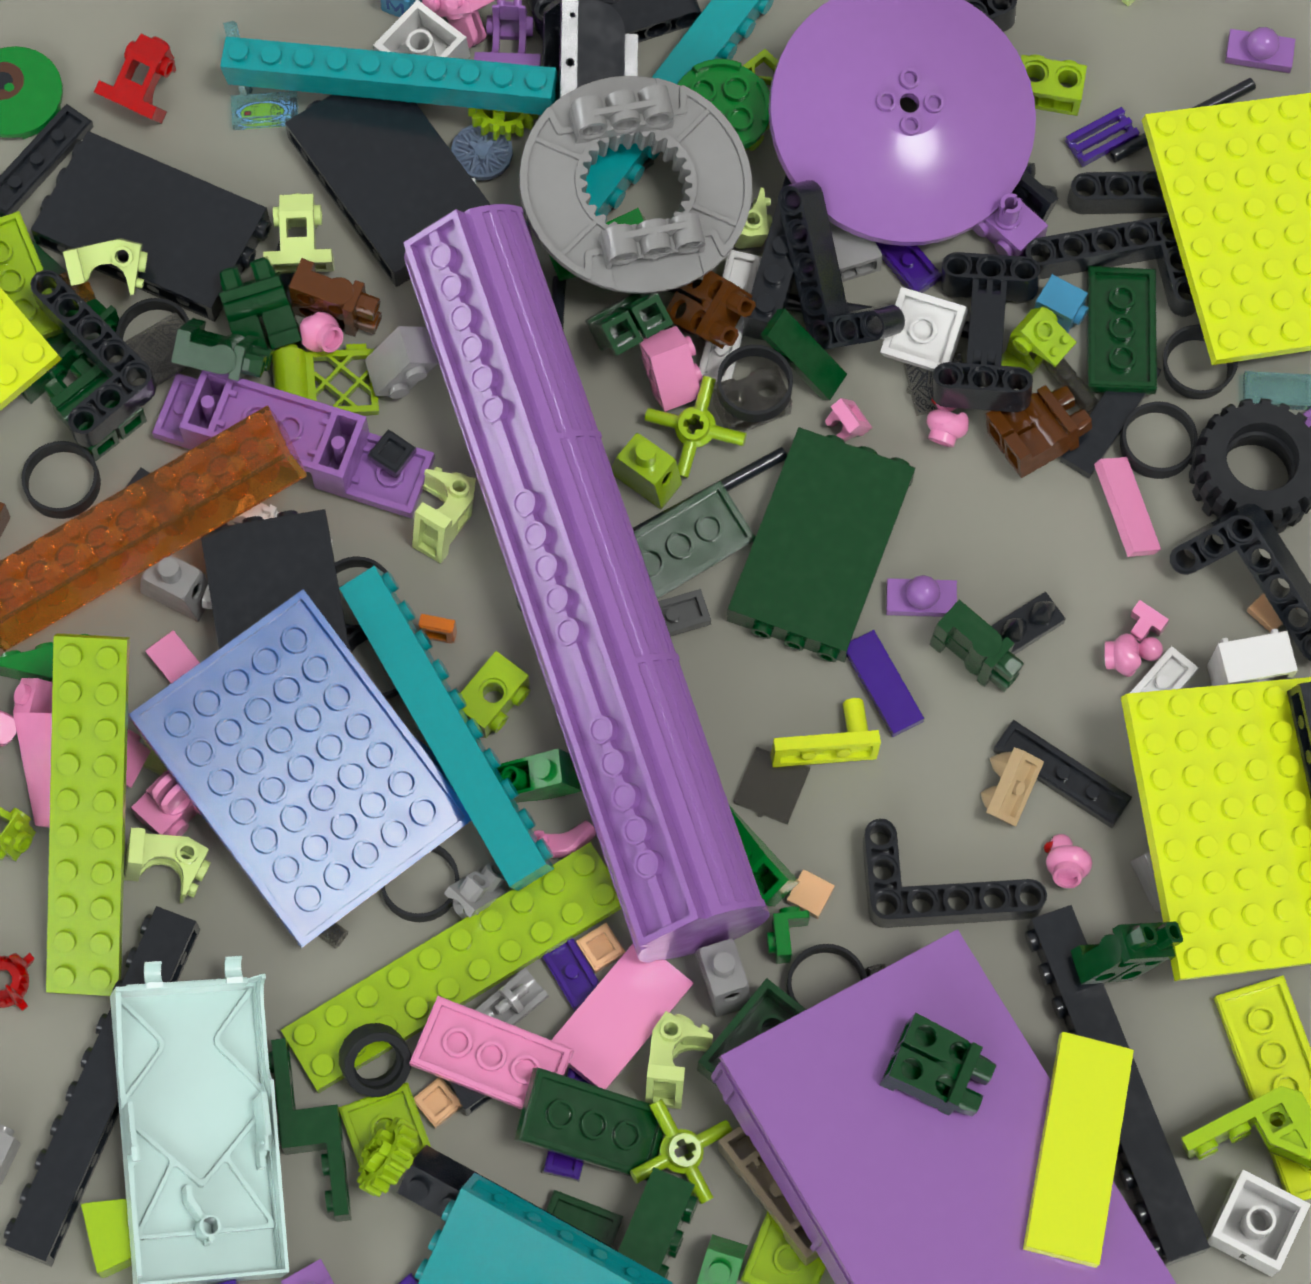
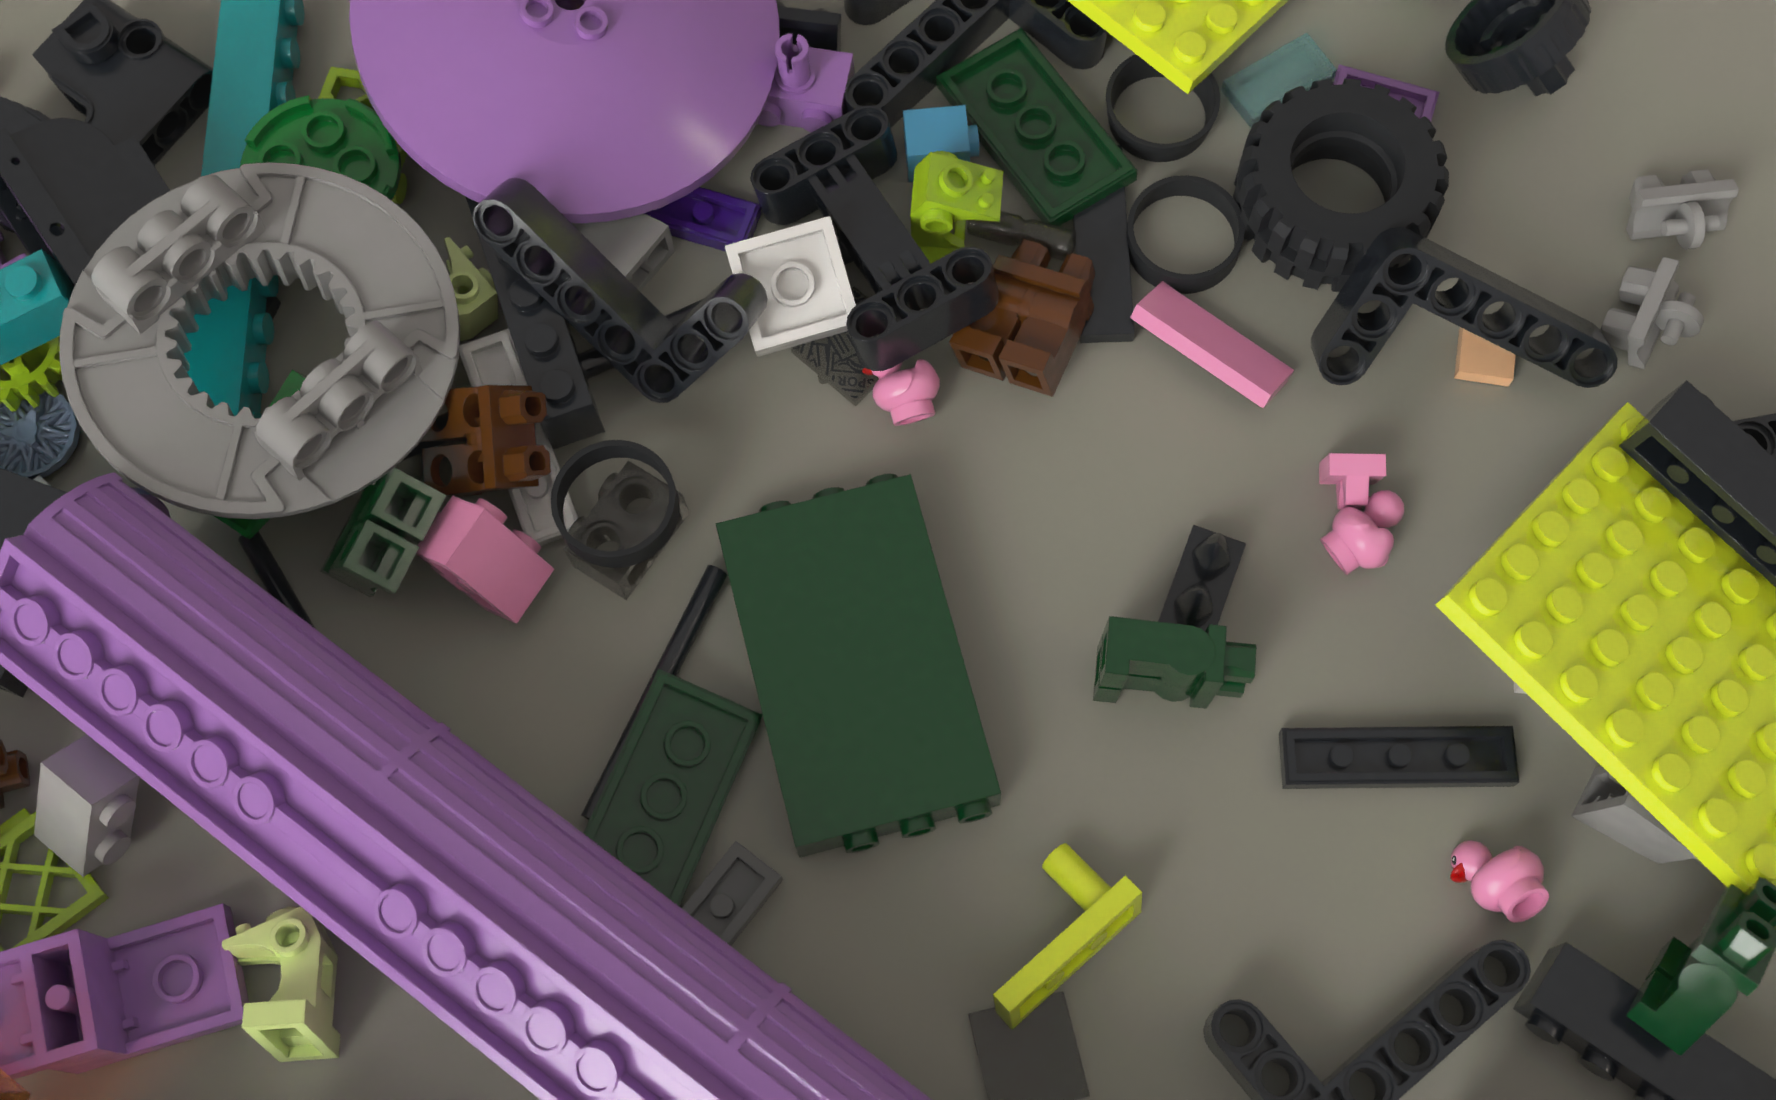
camera: 30 degrees left, 0 degrees up
(392, 453) = (159, 948): black tile -> none
(644, 467) = (544, 722): lime torso -> none
(689, 417) = (590, 626): lime bar -> none
(804, 354) = (653, 420): dark green tile -> none
(851, 417) = (775, 463): bright pink tile -> none
(884, 684) = (1076, 799): dark purple tile -> none
(920, 596) = (1038, 643): medium lavender tile -> none
(1018, 775) = (1351, 800): tan tile -> none
(1169, 673) = (1431, 543): white plate -> none
(1253, 659) = (1535, 442): white container -> none

